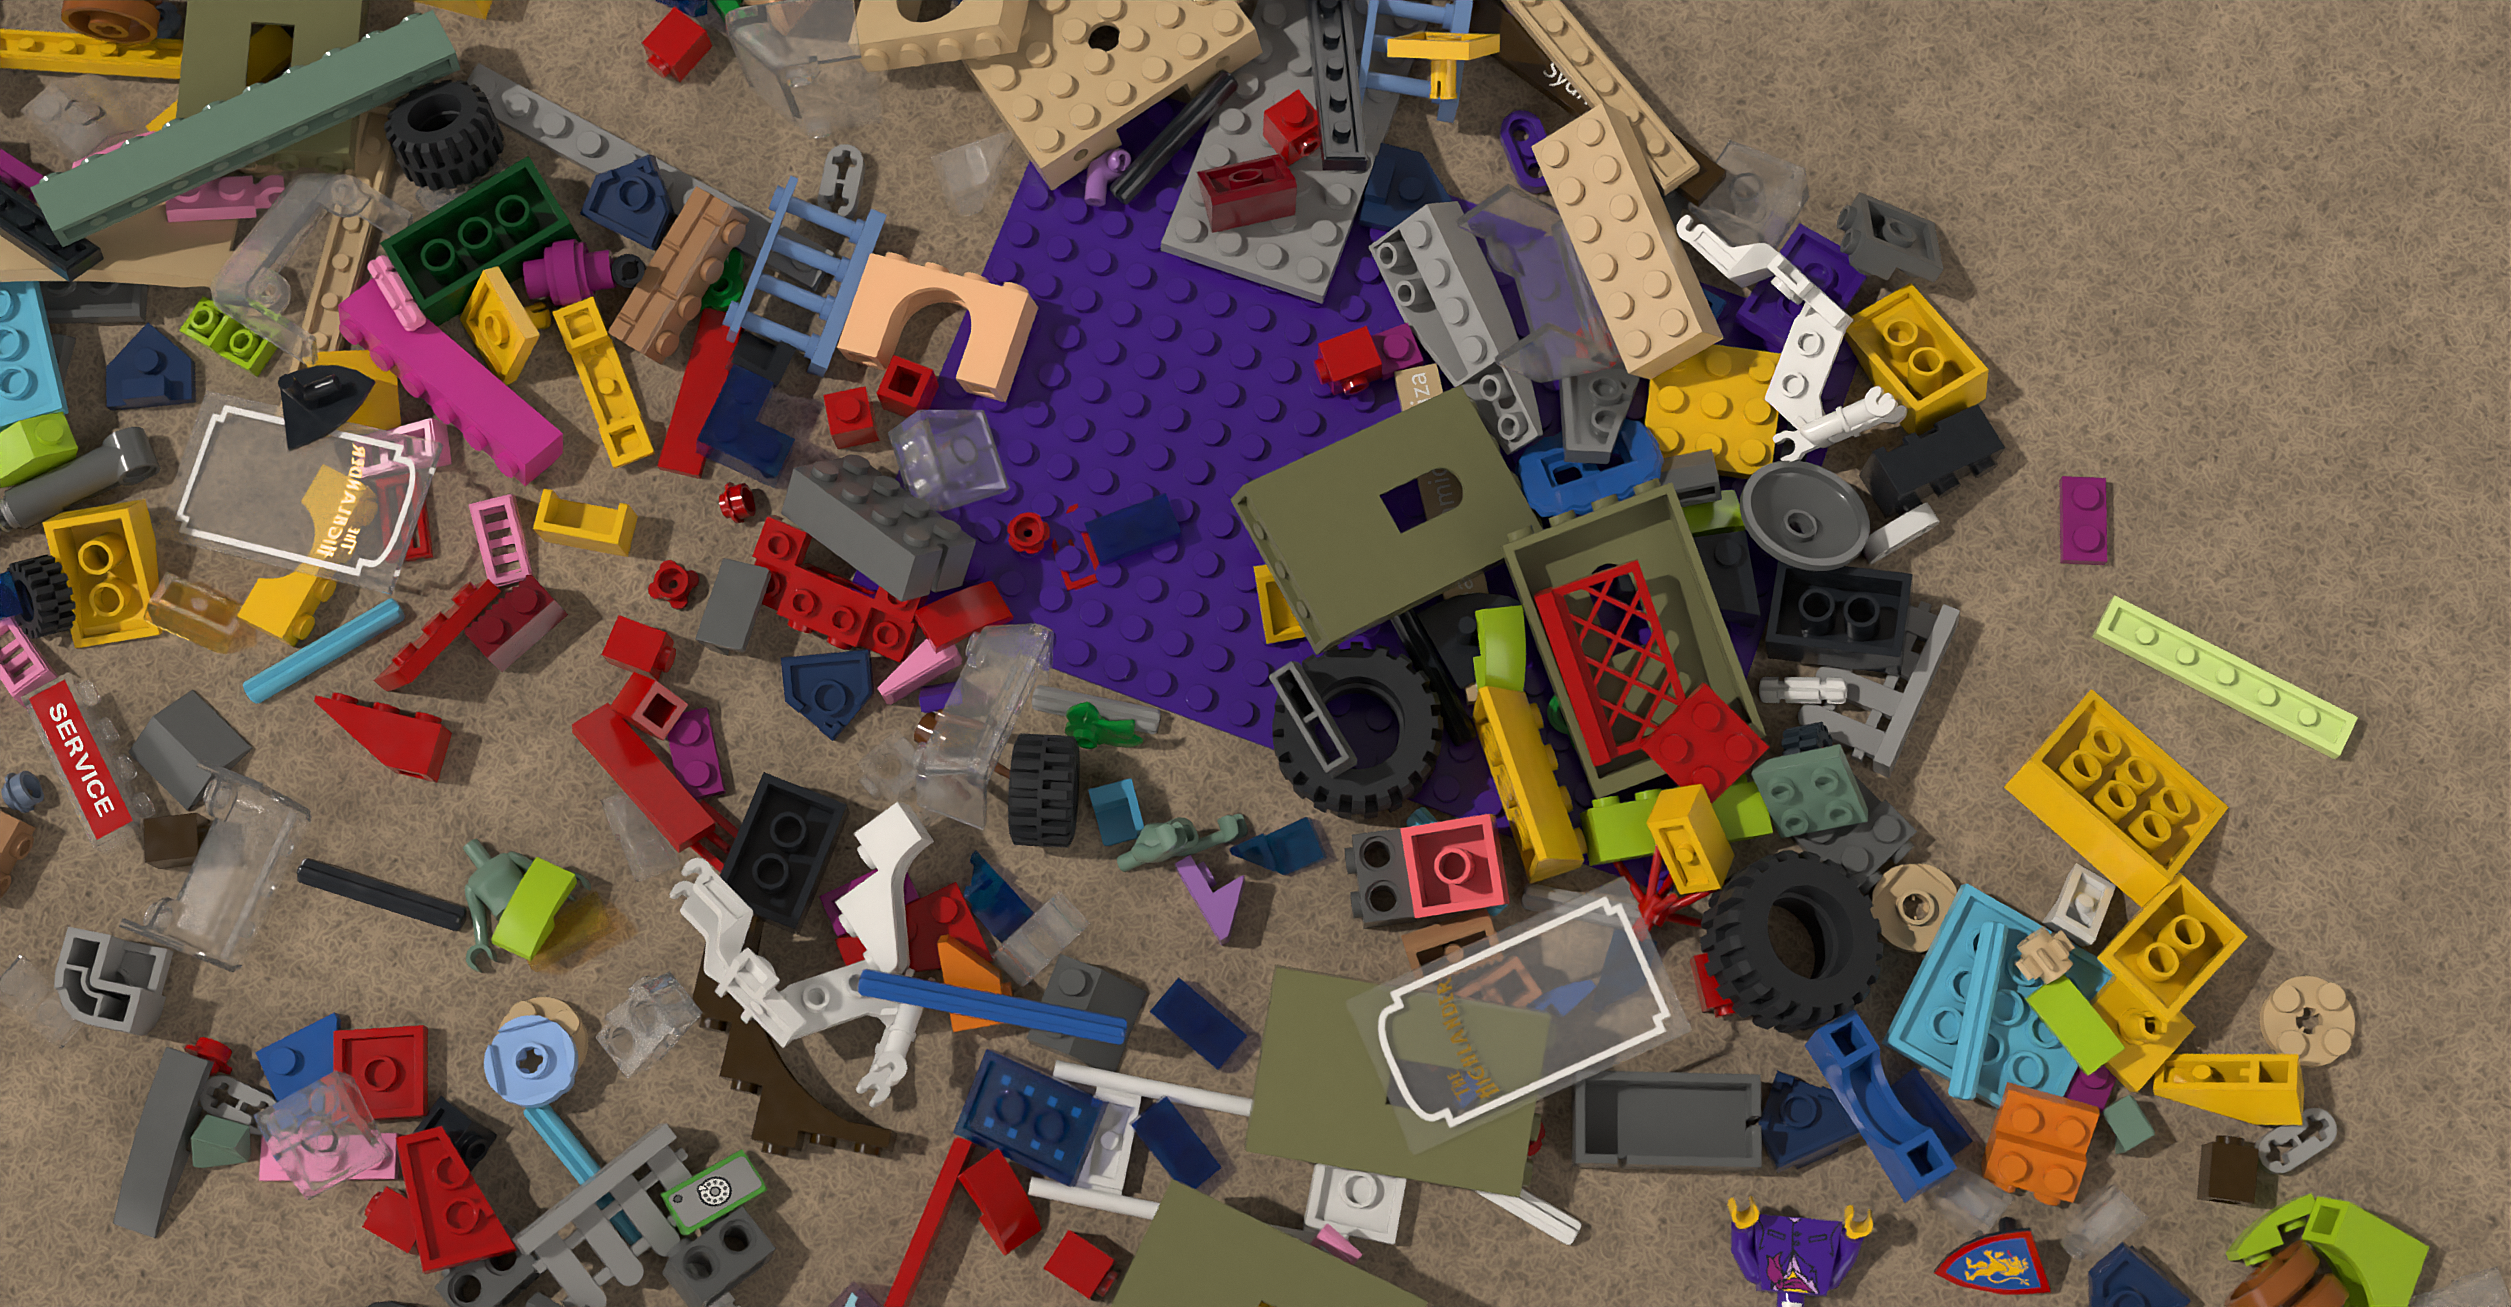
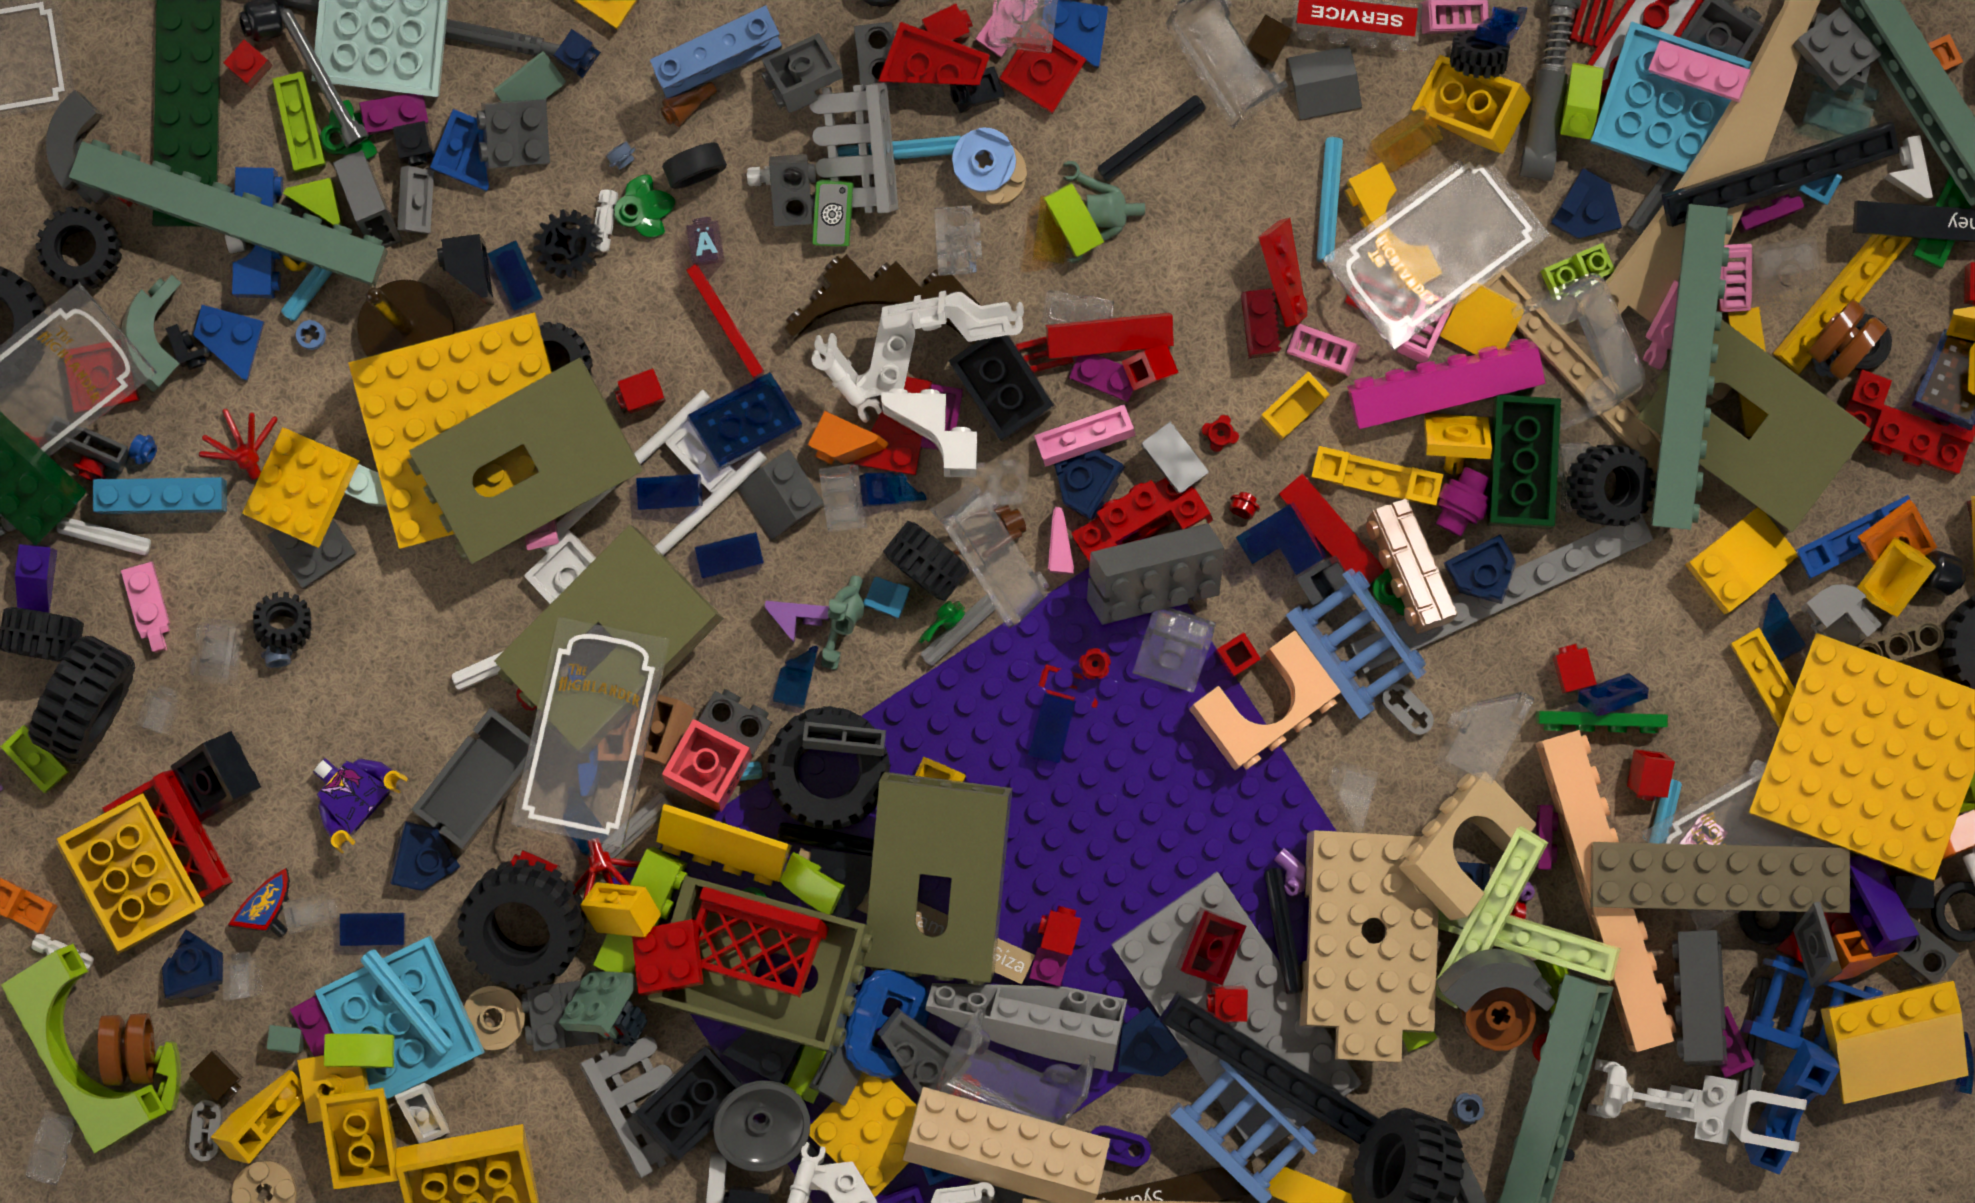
camera: 120 degrees right, 10 degrees up
(320, 401) = (1483, 297): black shield -> none
(396, 293) = (1520, 387): bright pink axle -> none
(399, 742) = (1240, 204): red slope -> none
(628, 270) = (1435, 537): black axle -> none
(639, 648) = (1191, 386): red brick -> none
(778, 725) = (1084, 435): none -> bright pink plate
(851, 417) = (1245, 609): red brick -> none
(935, 696) = (1032, 543): dark purple tile -> none
(961, 614) = (1068, 588): red slope -> none
(992, 1006) = (817, 441): blue axle -> none
(1002, 1200) = (708, 371): red slope -> none
(1443, 51) = (1204, 1126): yellow tile -> none
(1803, 690) = (665, 1051): white axle -> none
(1854, 1071) = (379, 899): blue arch -> none
(2039, 1144) = (309, 980): orange plate -> none
(2044, 955) = (408, 1063): tan gear -> none

